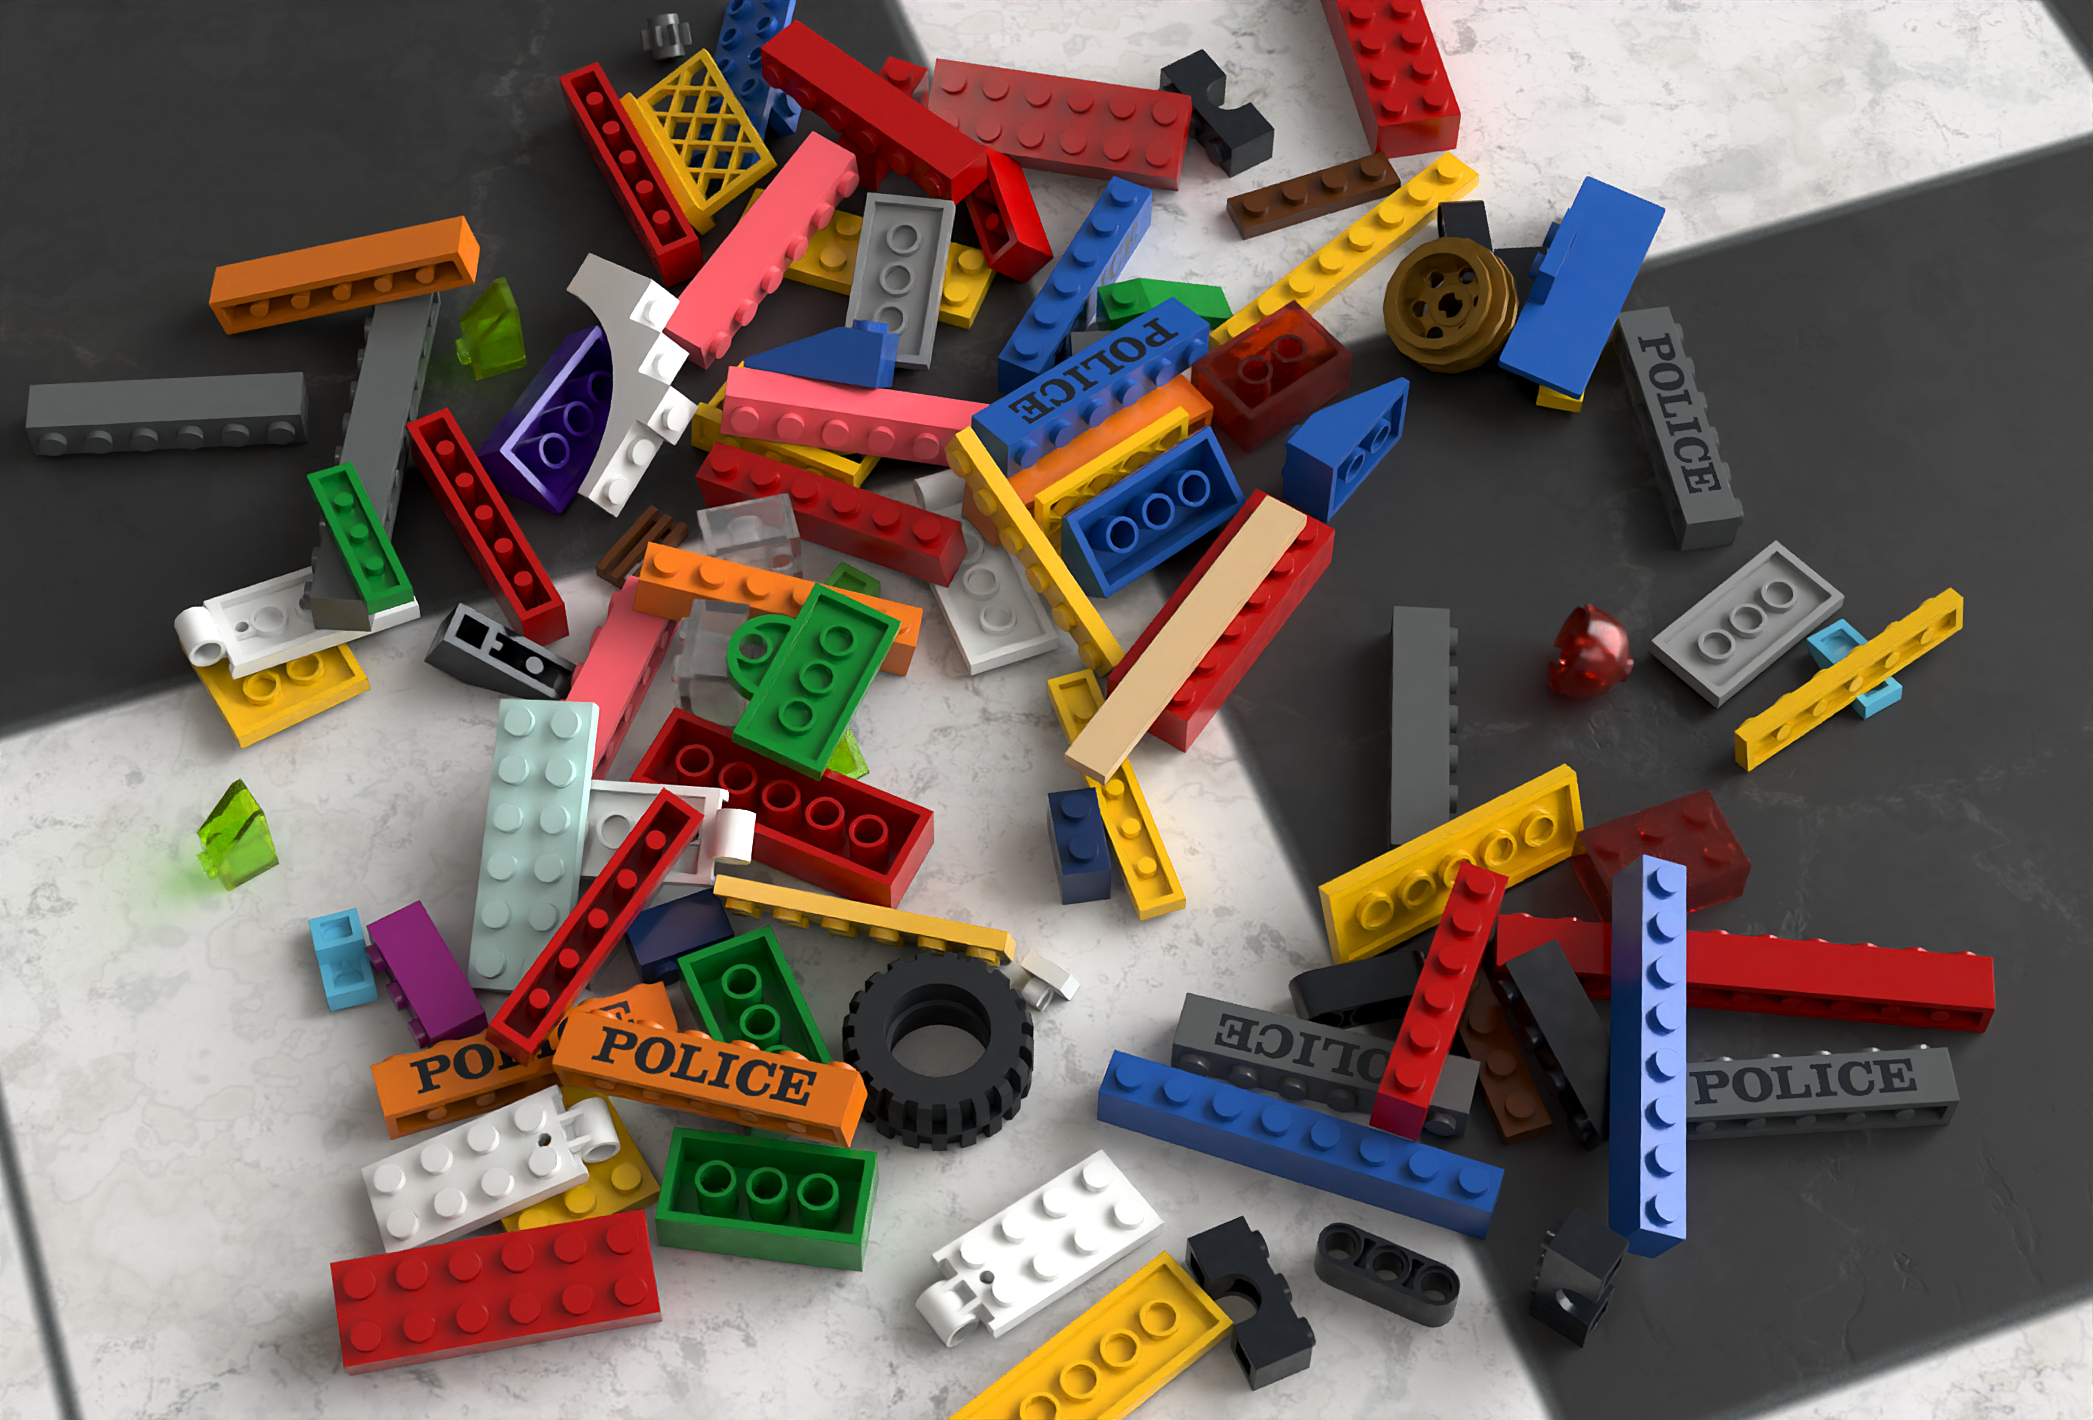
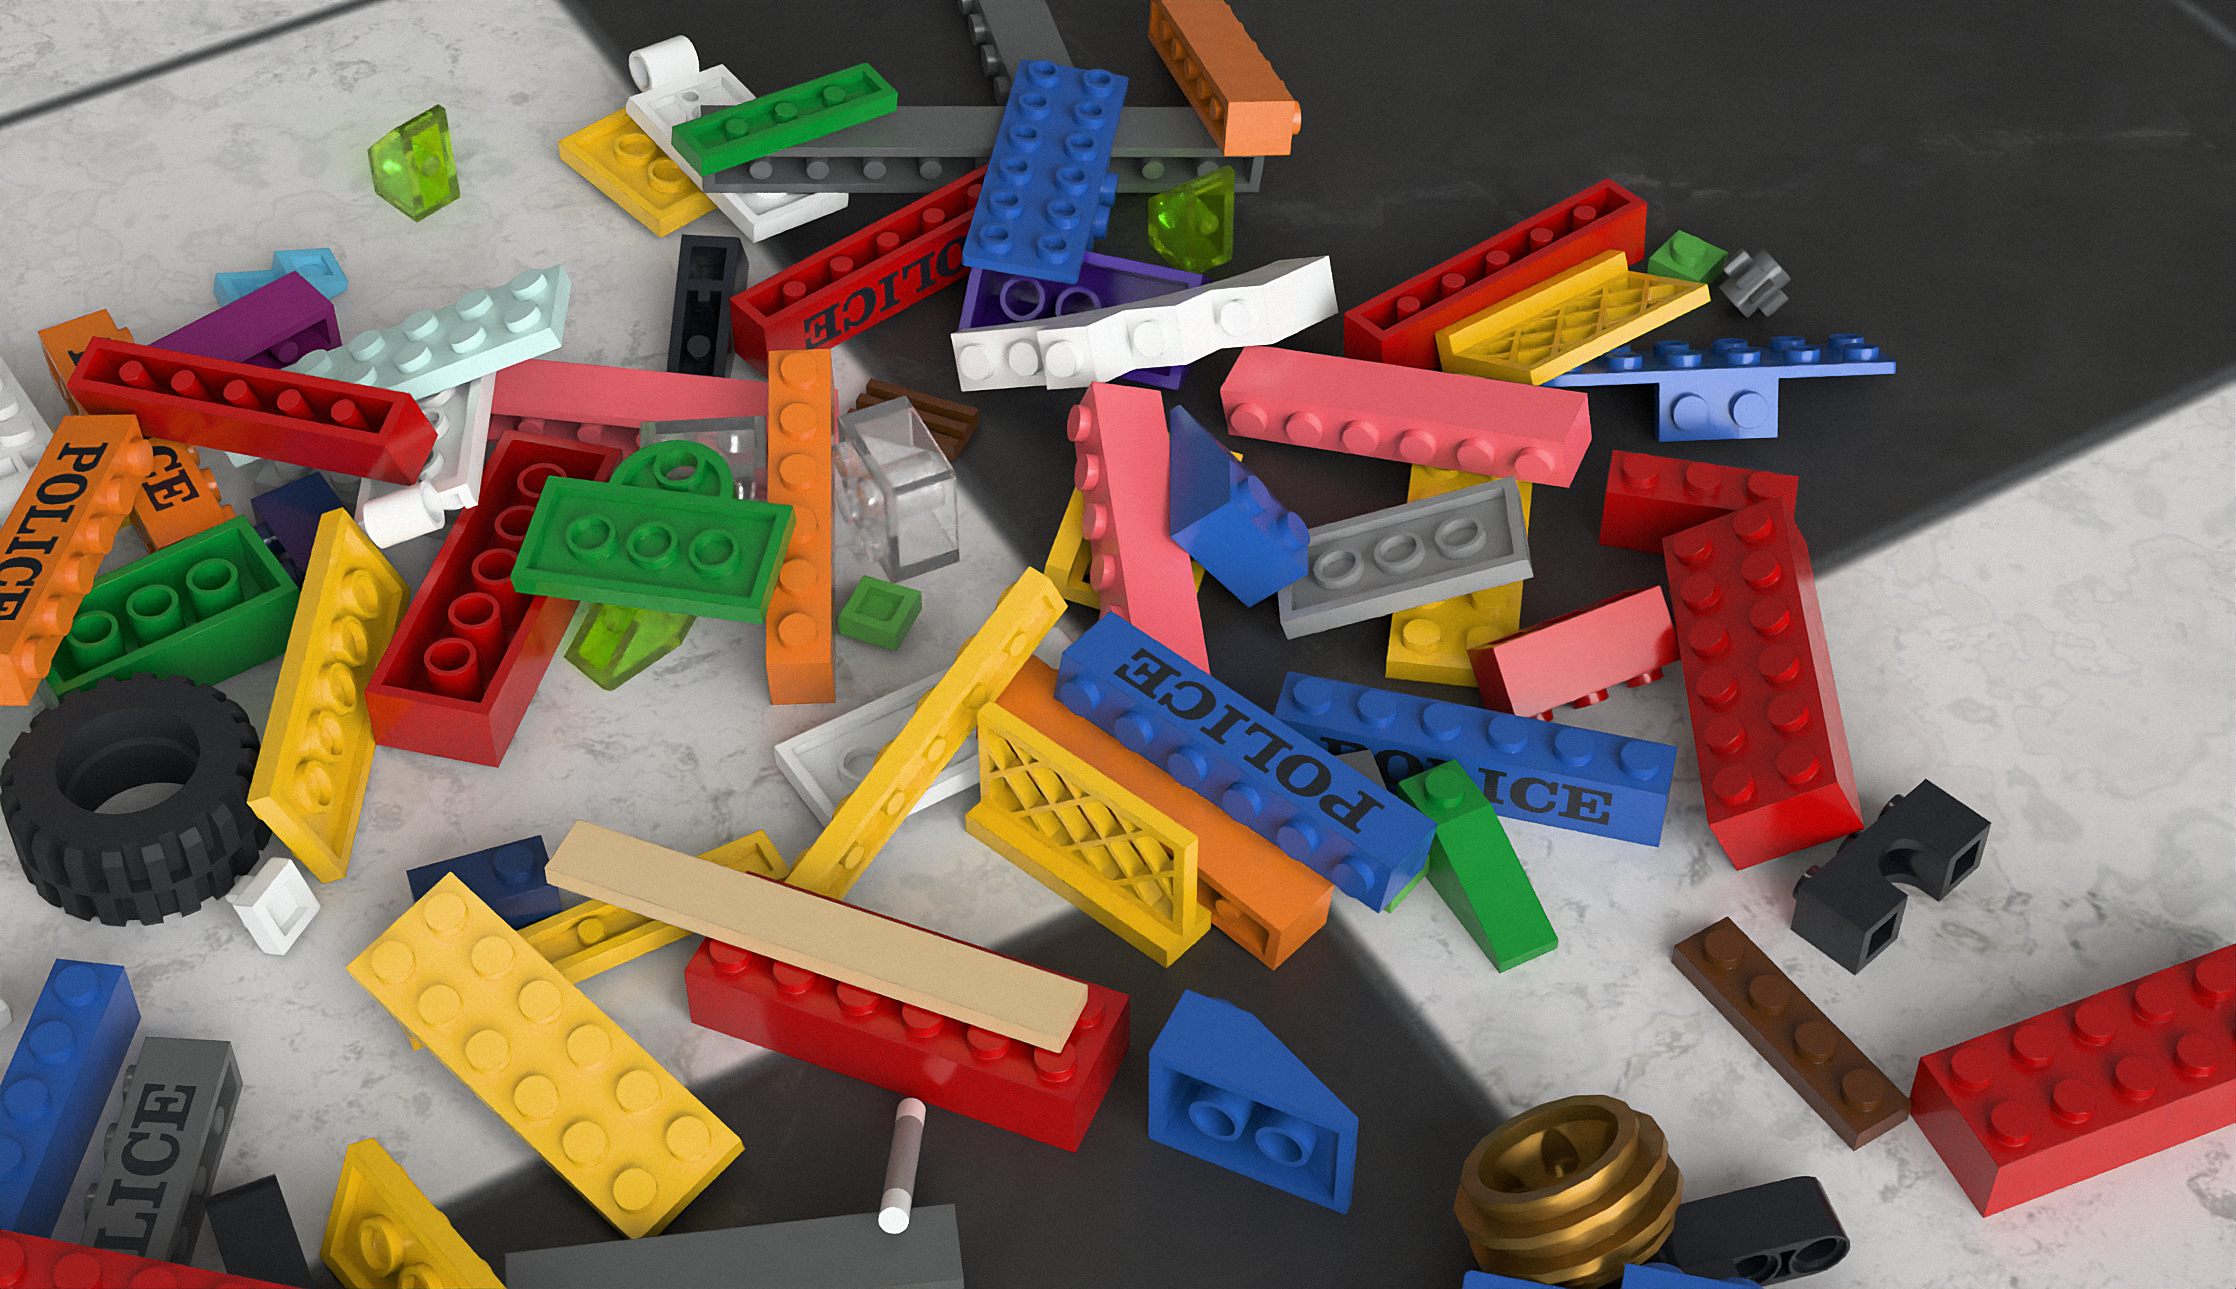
camera: 80 degrees right, 10 degrees down
(444, 396) = (1049, 173): none -> blue bracket
(622, 71) = (1688, 259): none -> bright green plate
(840, 514) = (977, 549): red brick -> none
(873, 113) = (1647, 455): red brick -> none
(1150, 515) = (1051, 878): blue slope -> none
(1230, 816) = (545, 1060): none -> yellow plate
(1272, 375) = (1373, 1000): clear red brick -> none
(1352, 632) = (902, 1166): none -> bar
(1358, 246) = (1681, 1091): yellow plate -> none

